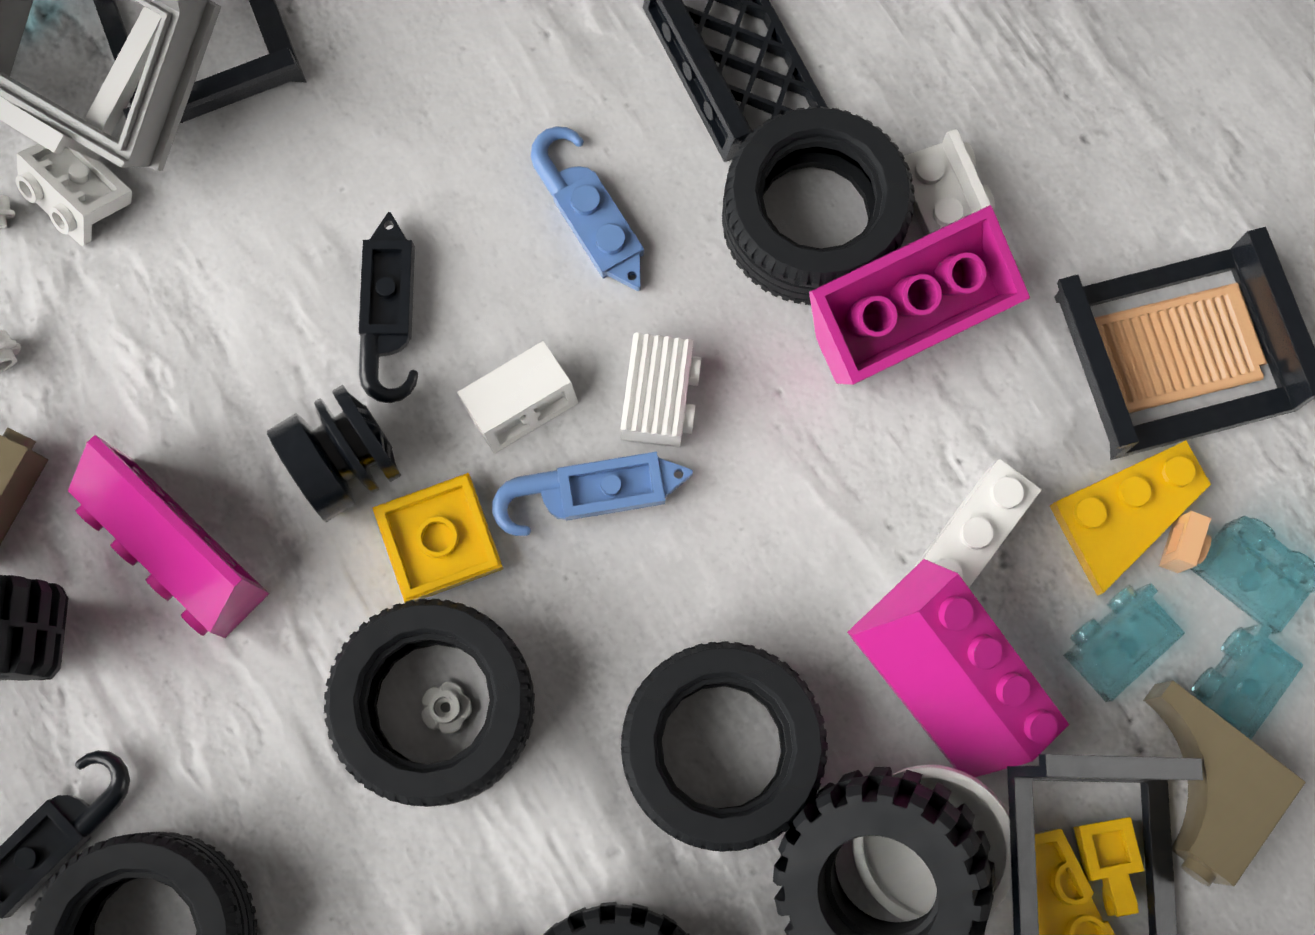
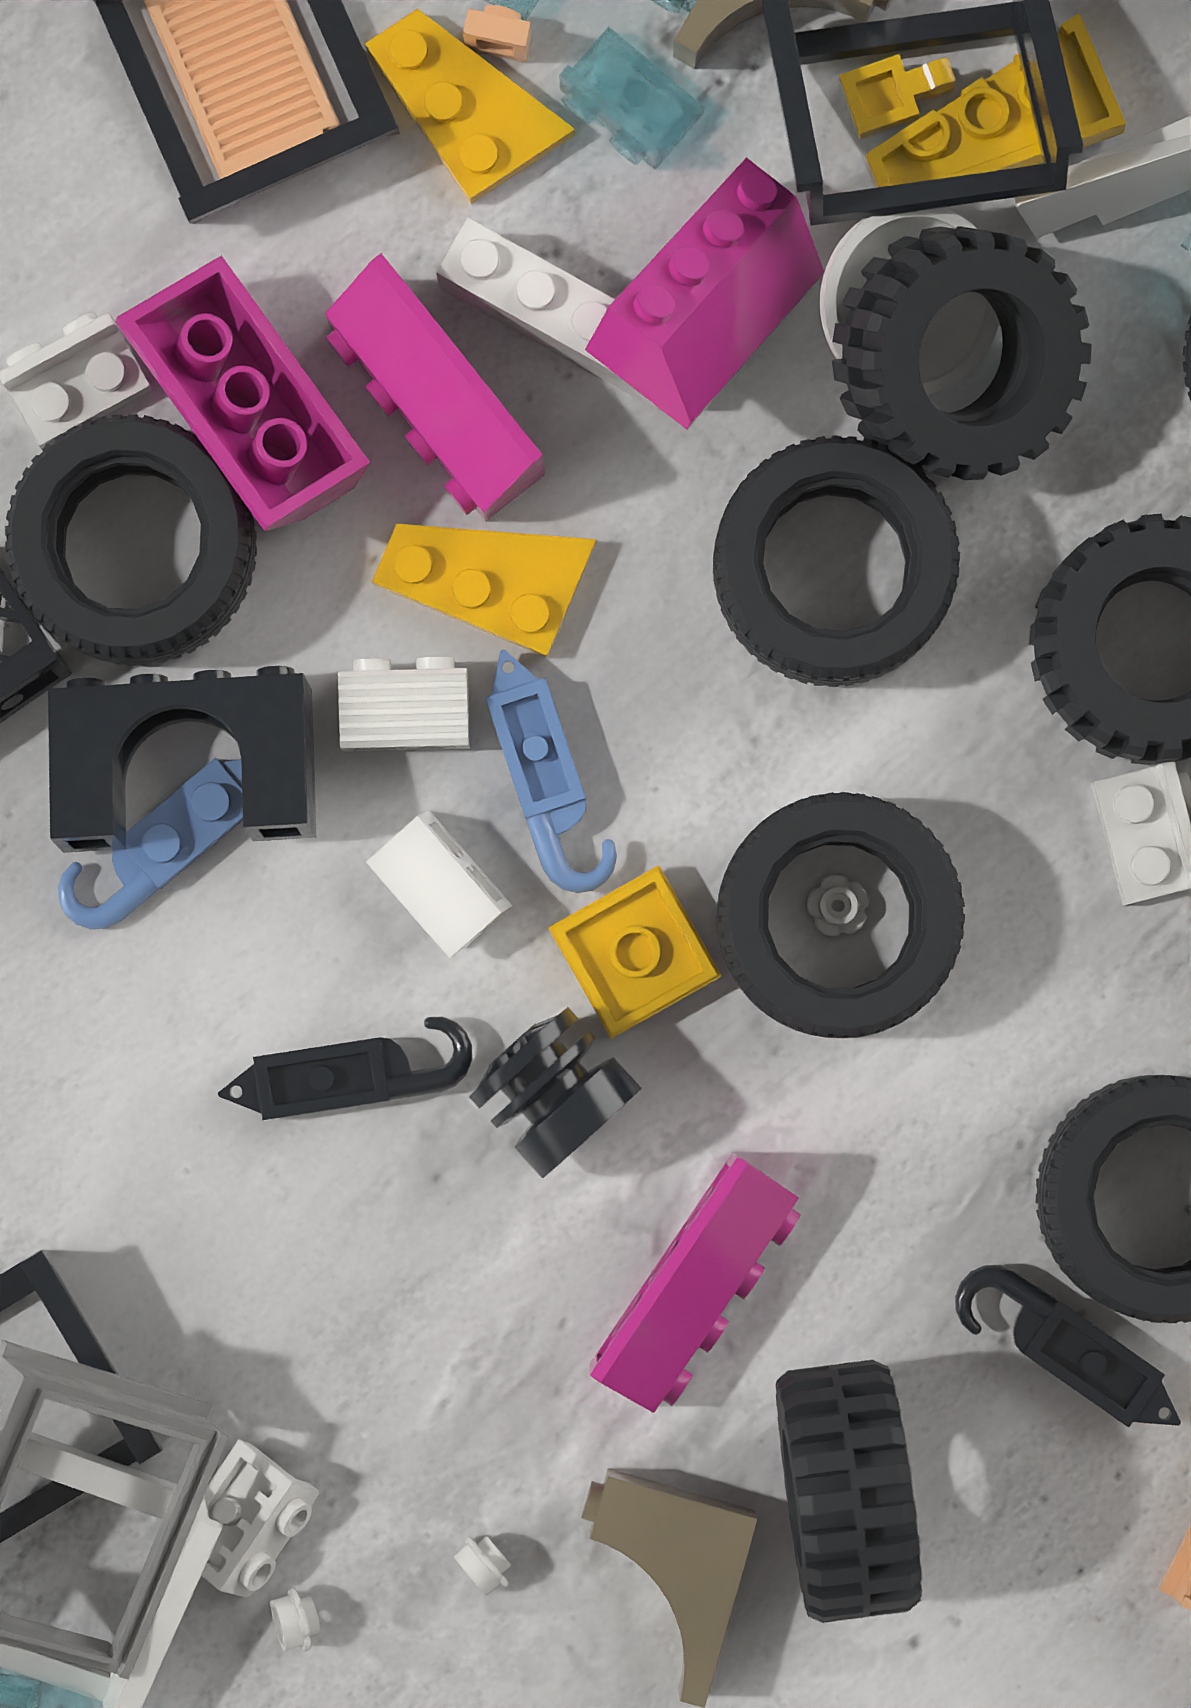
camera: 95 degrees left, 10 degrees up
(676, 166) = (101, 727): none -> black arch
(750, 473) = (488, 579): none -> yellow wing
(904, 447) = (434, 390): none -> dark pink slope

